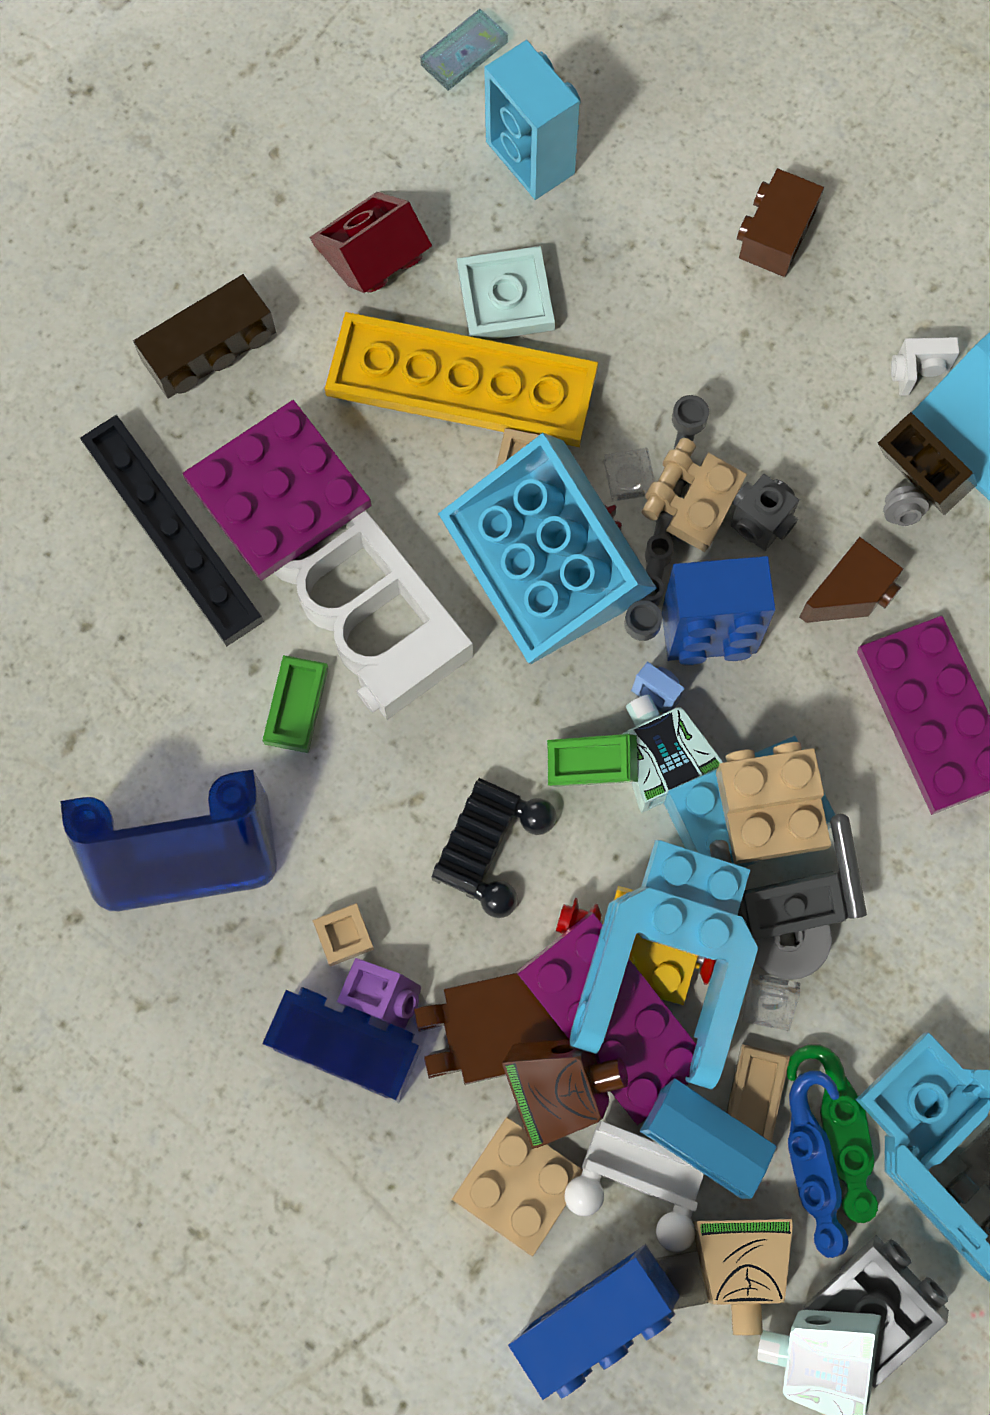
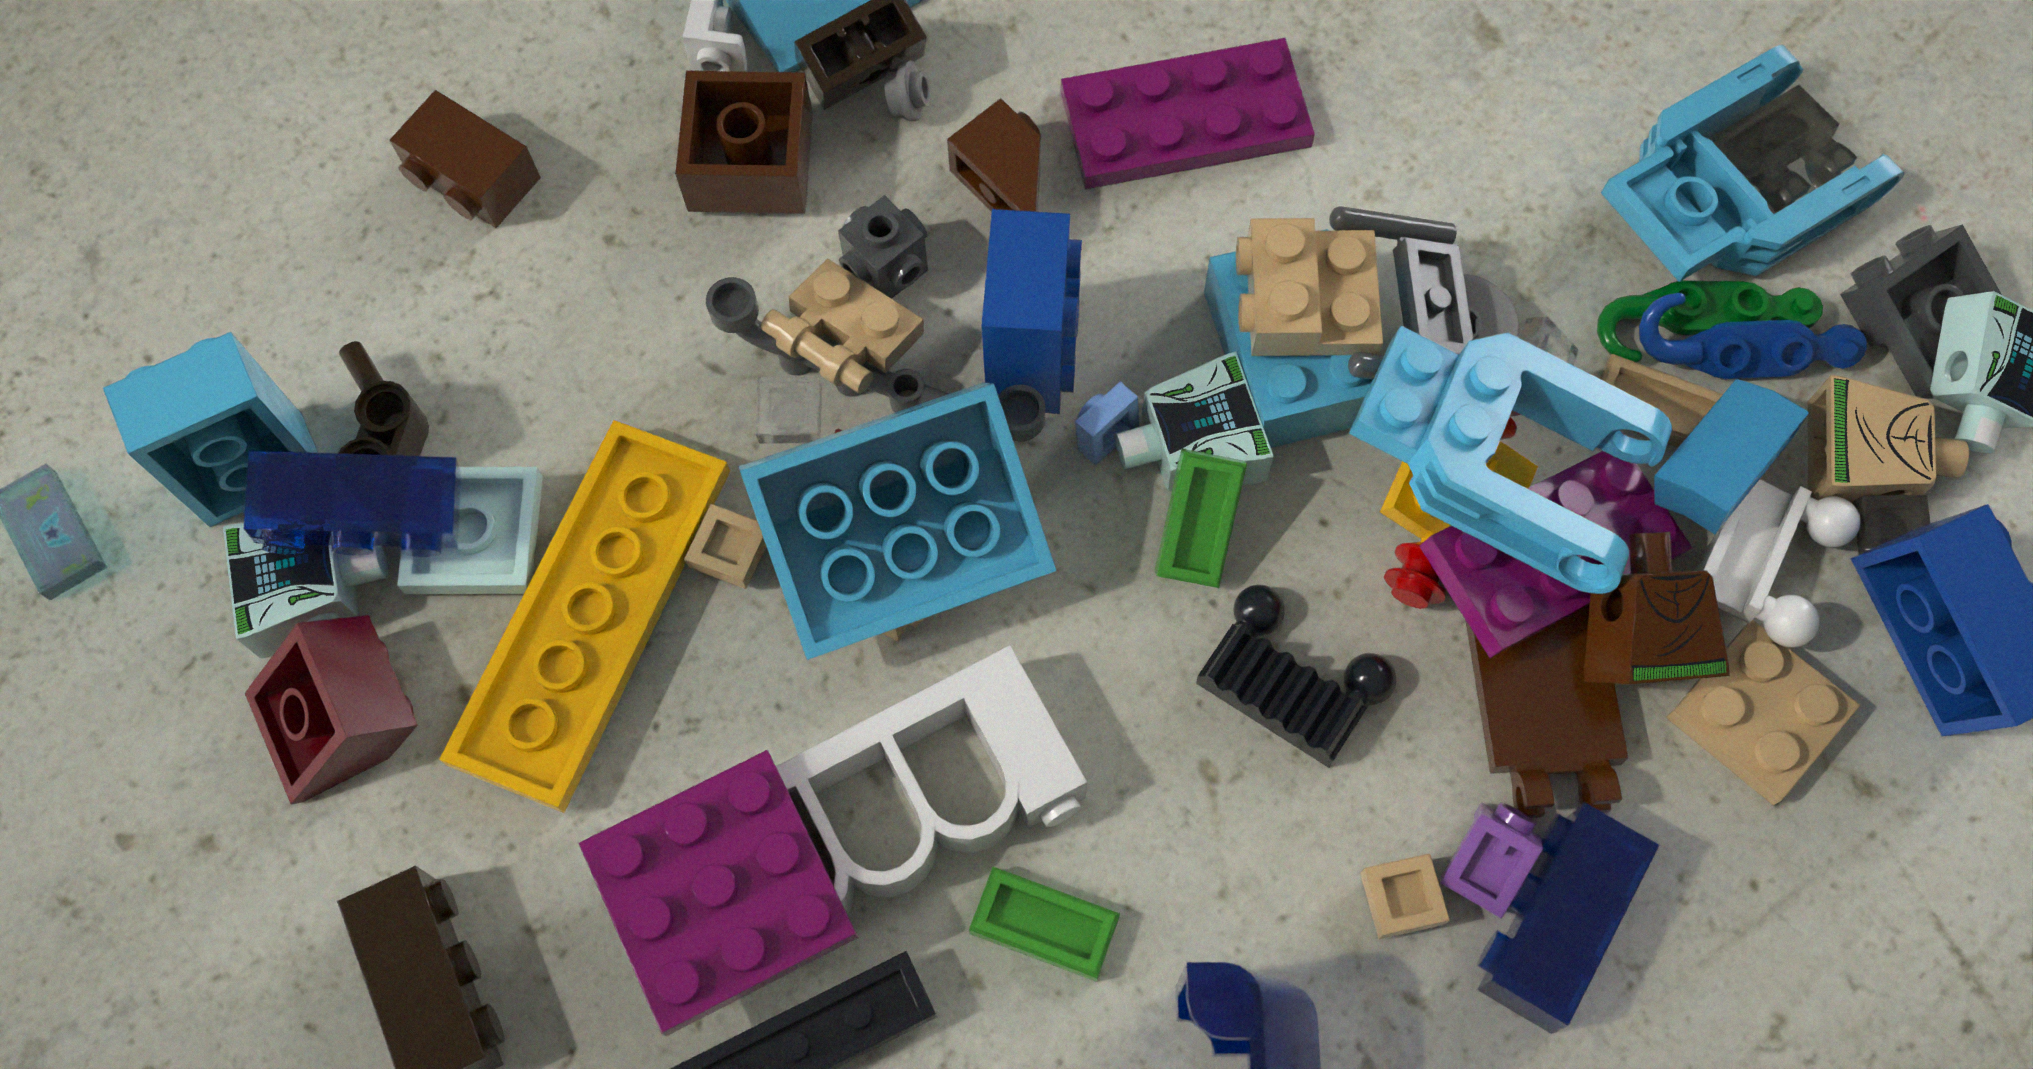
camera: 80 degrees left, 5 degrees down
(451, 198) = (285, 589): none -> torso
(495, 213) = (352, 502): none -> clear blue brick
(553, 228) = (378, 402): none -> dark brown beam
(830, 400) = (744, 142): none -> reddish brown brick

